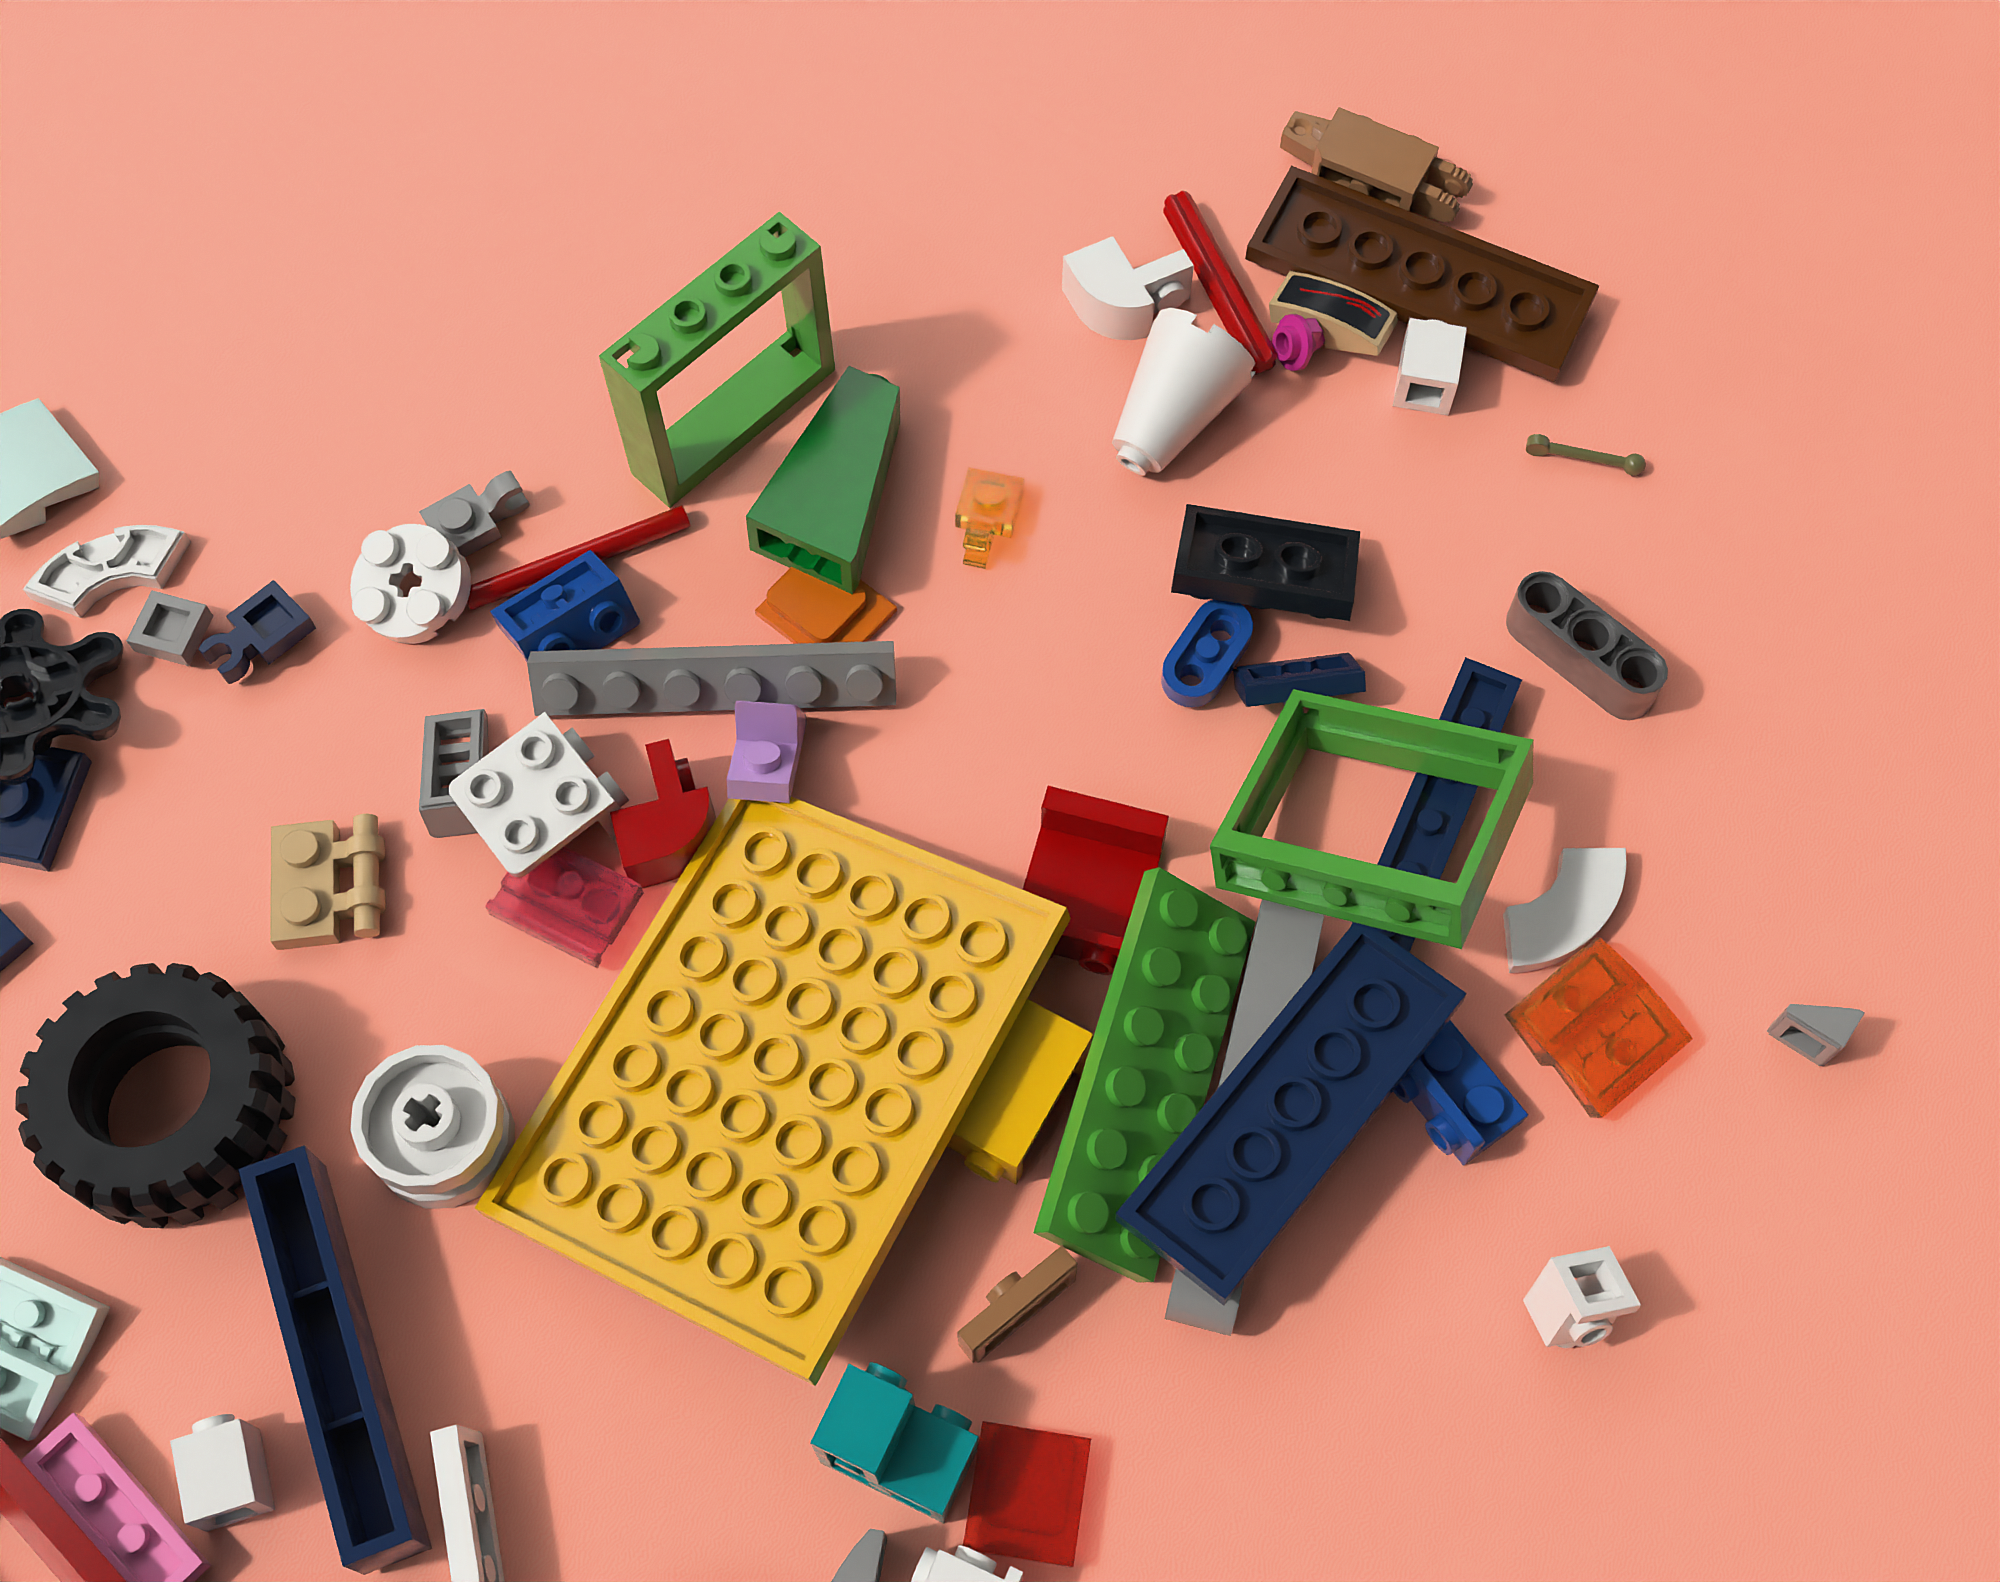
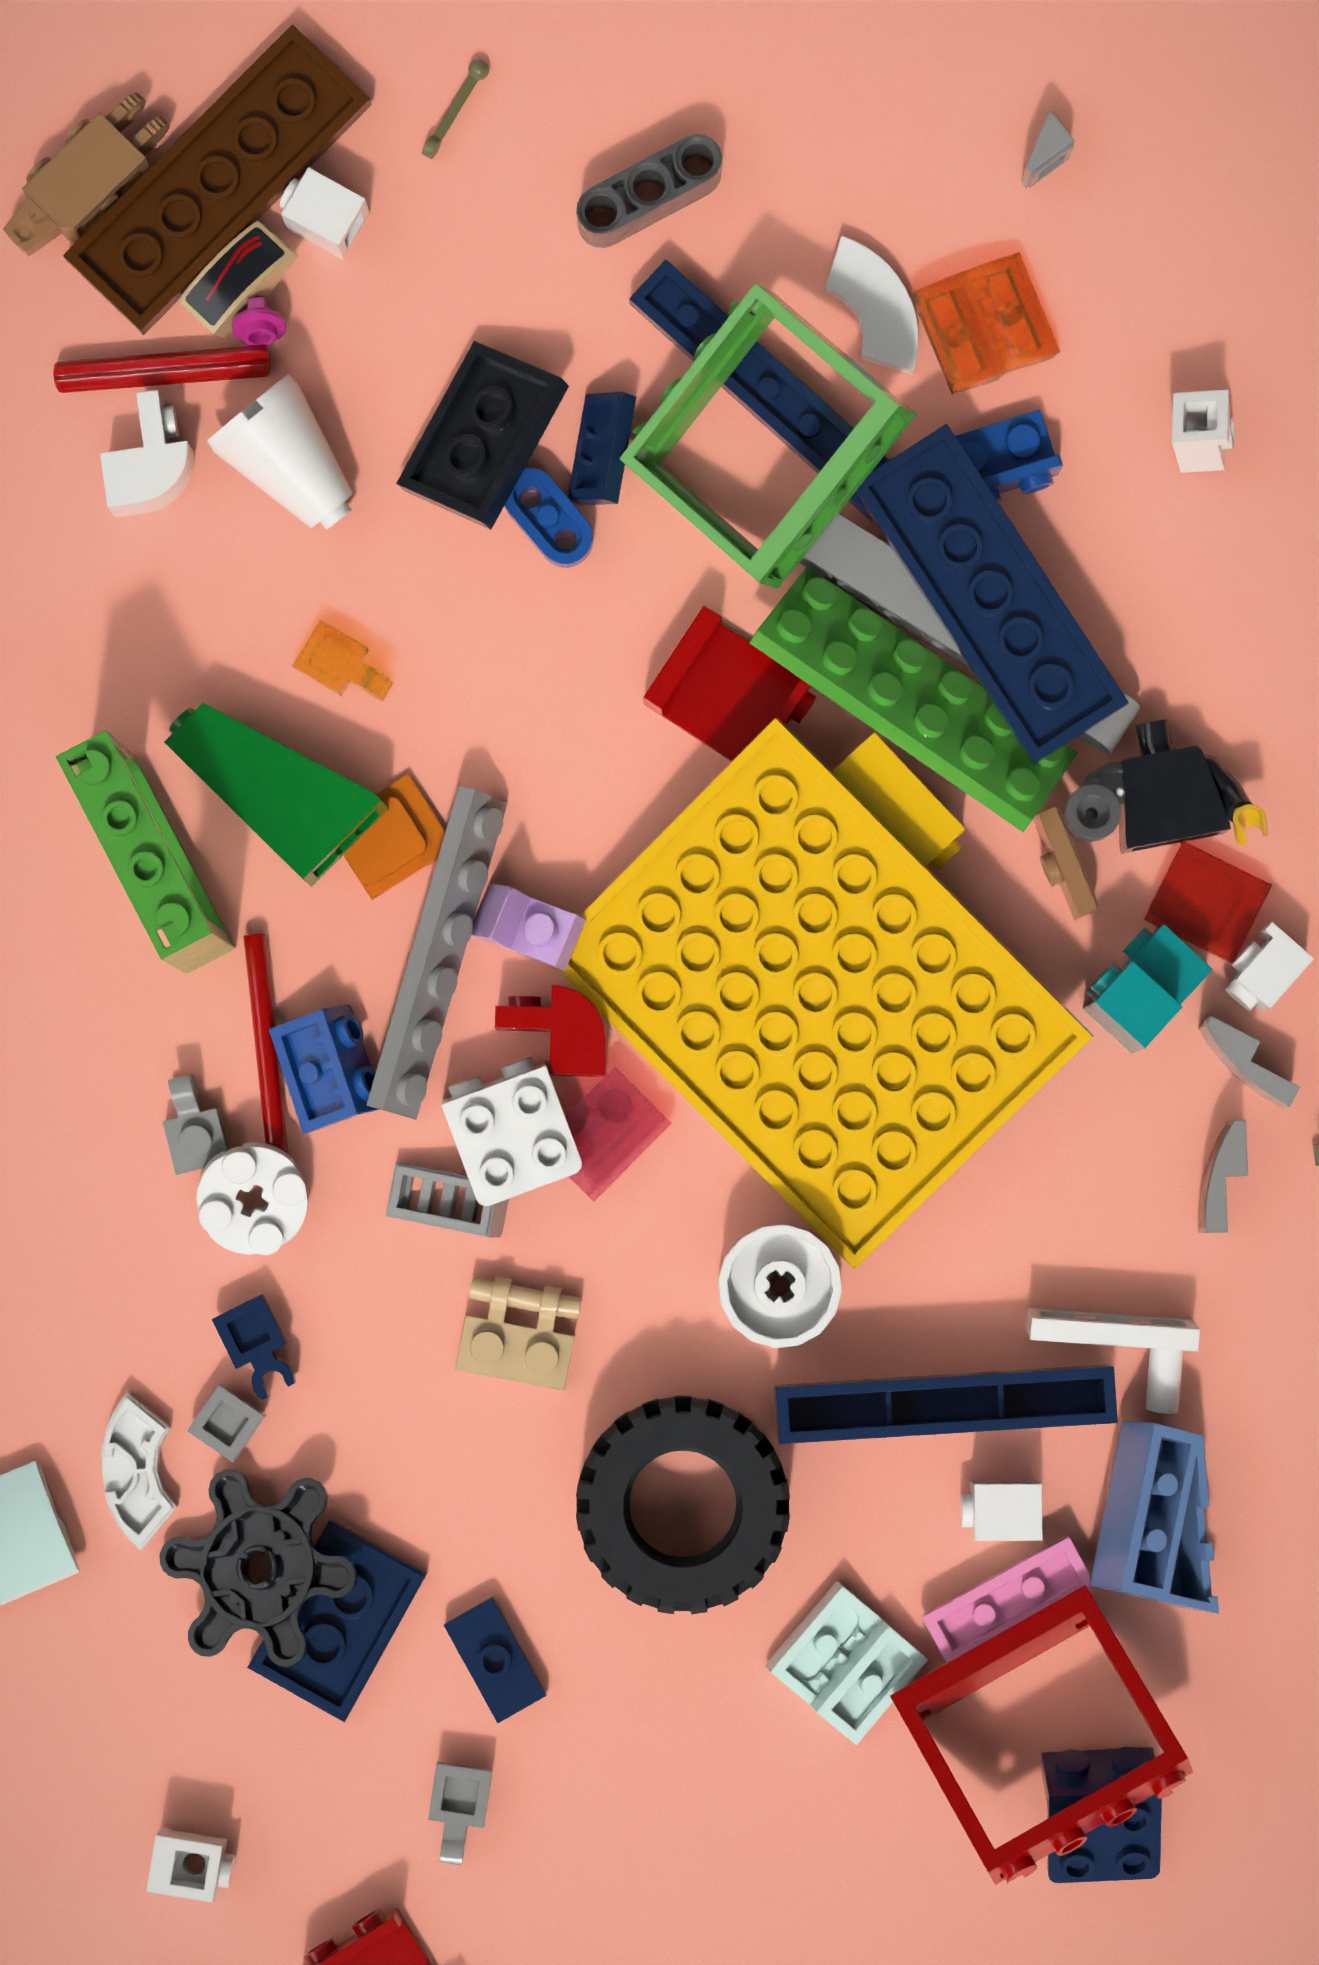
camera: 70 degrees left, 20 degrees up
(1131, 1390) = (1161, 797): none -> black torso

